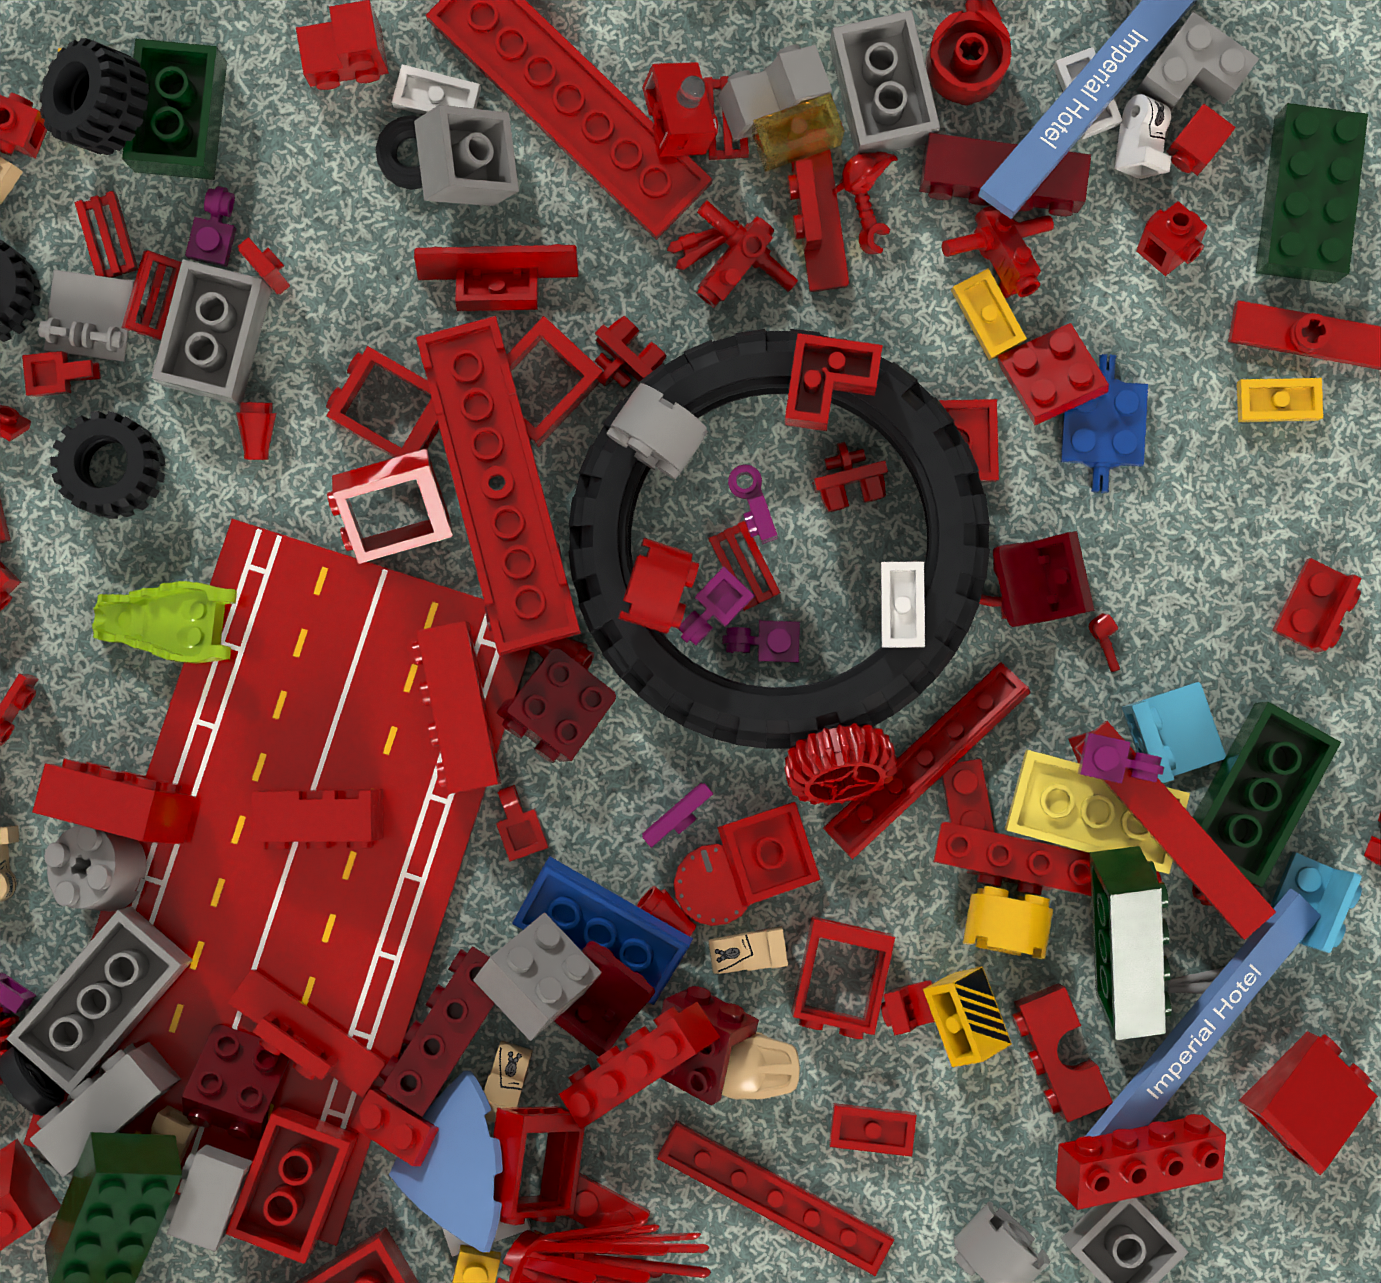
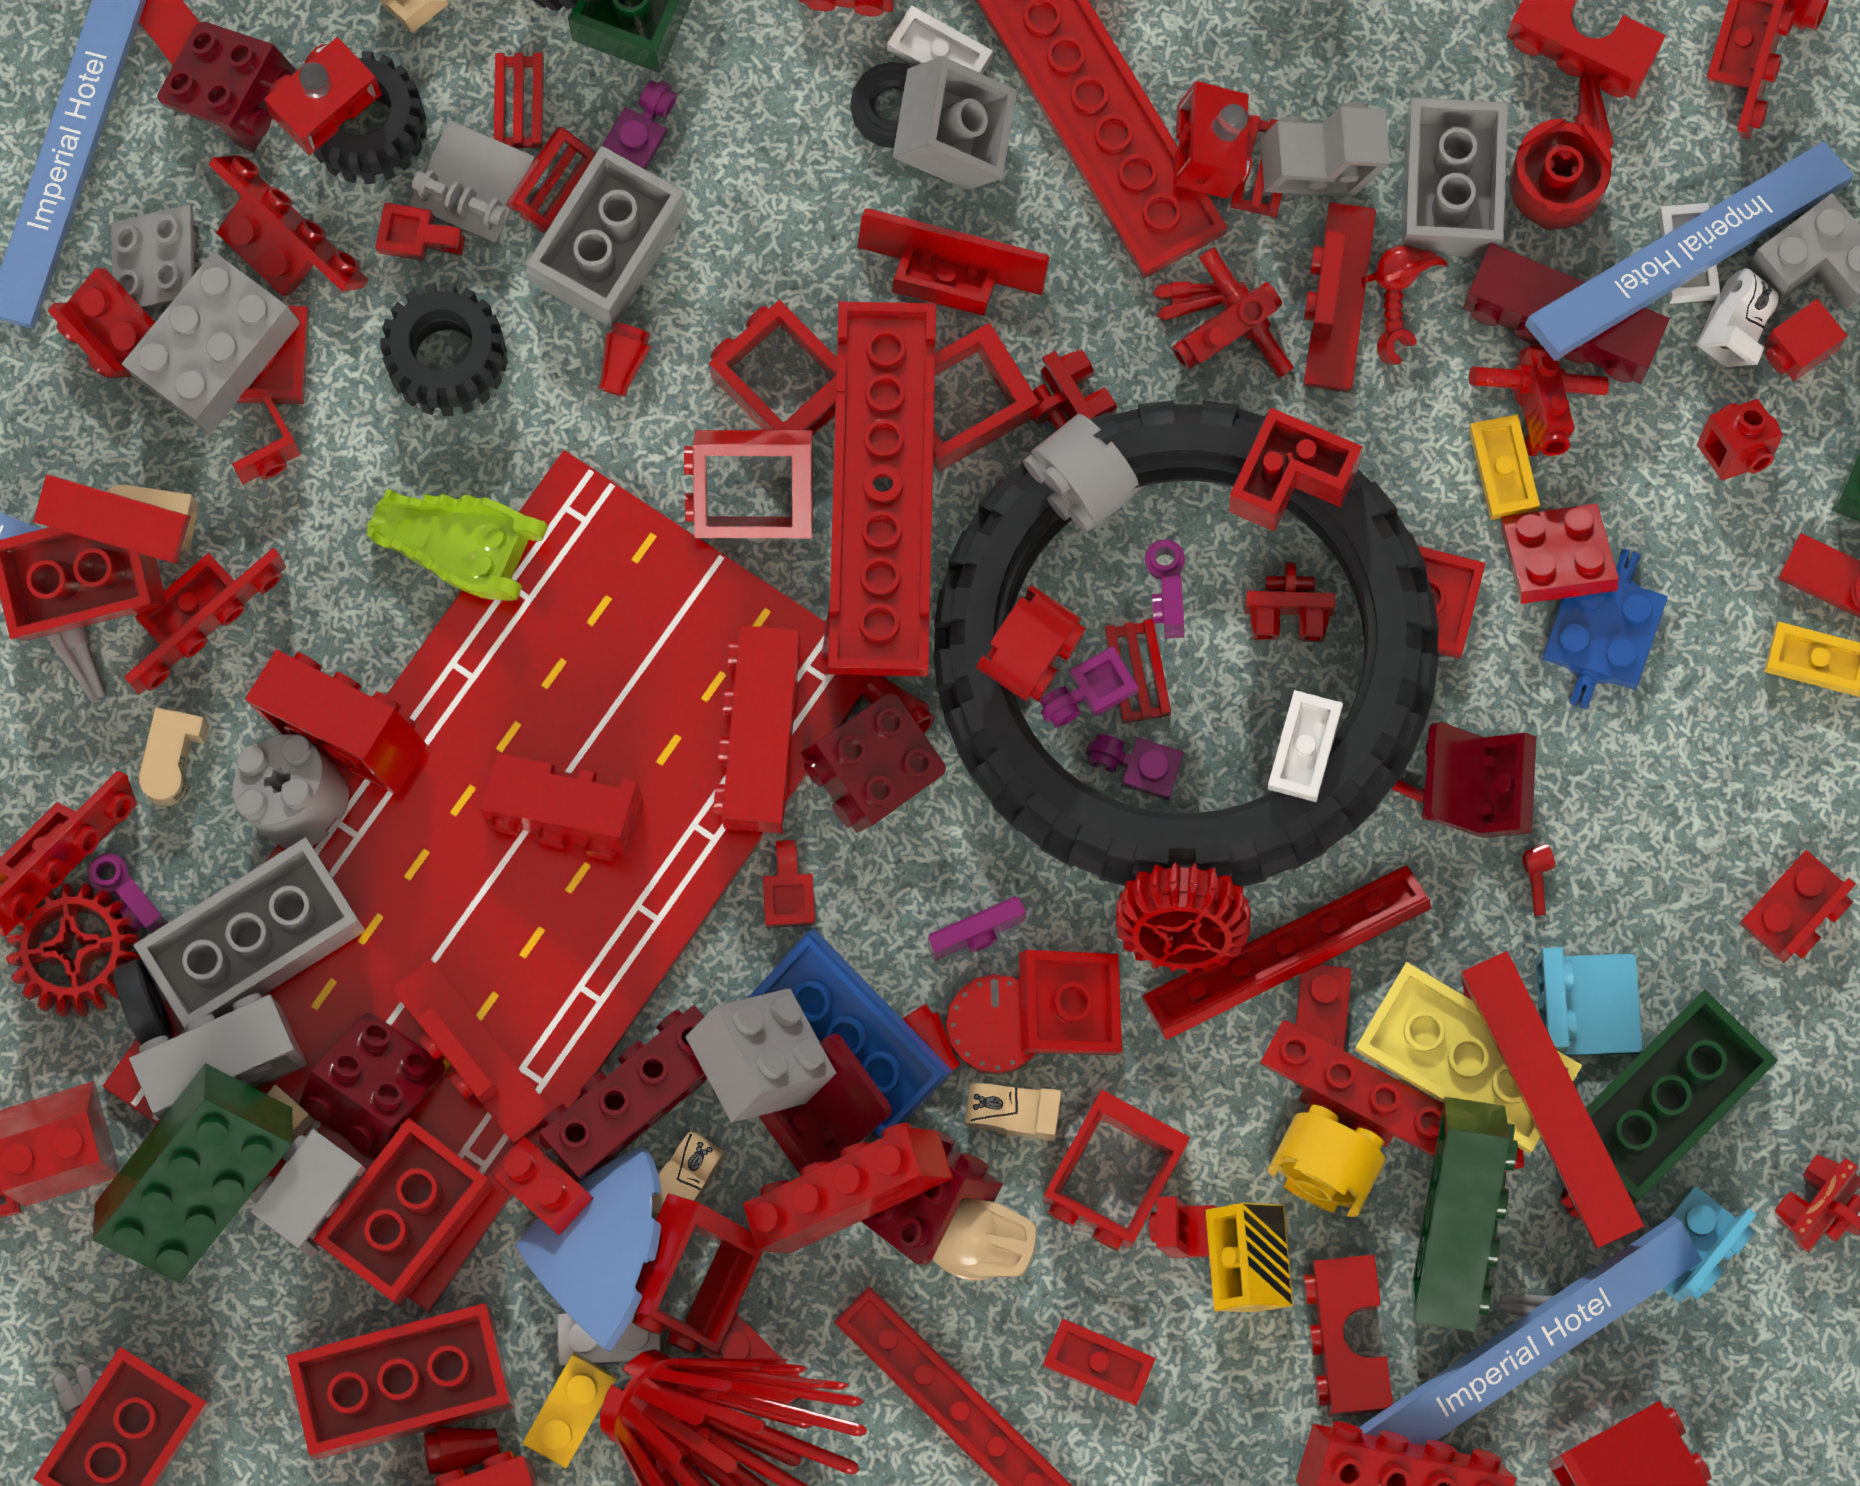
camera: 20 degrees right, 10 degrees down
(265, 264) = (690, 178): red plate -> none
(797, 132) = (1339, 200): clear yellow brick -> none
(1107, 759) = (1494, 989): magenta plate -> none

